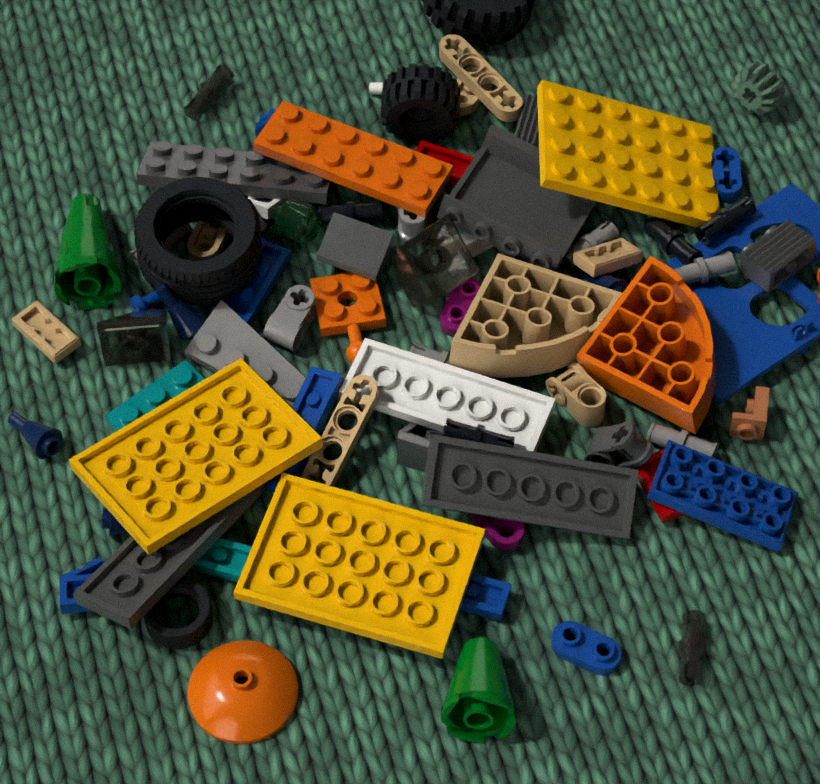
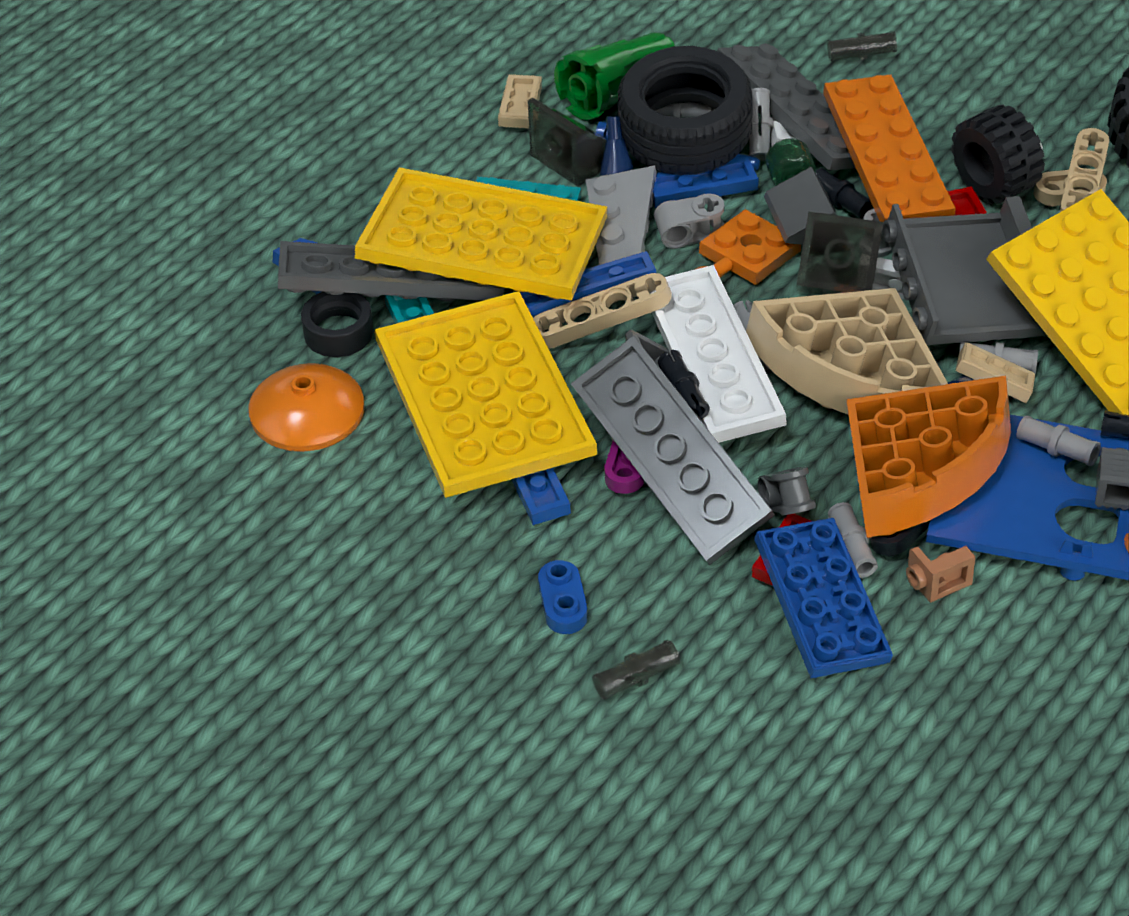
camera: 55 degrees right, 10 degrees down
(42, 439) = (419, 154): dark blue cone -> none
(479, 695) = (434, 538): green cone -> none
(579, 395) = (822, 441): tan piece -> none
(672, 241) = (1072, 406): black pin -> none

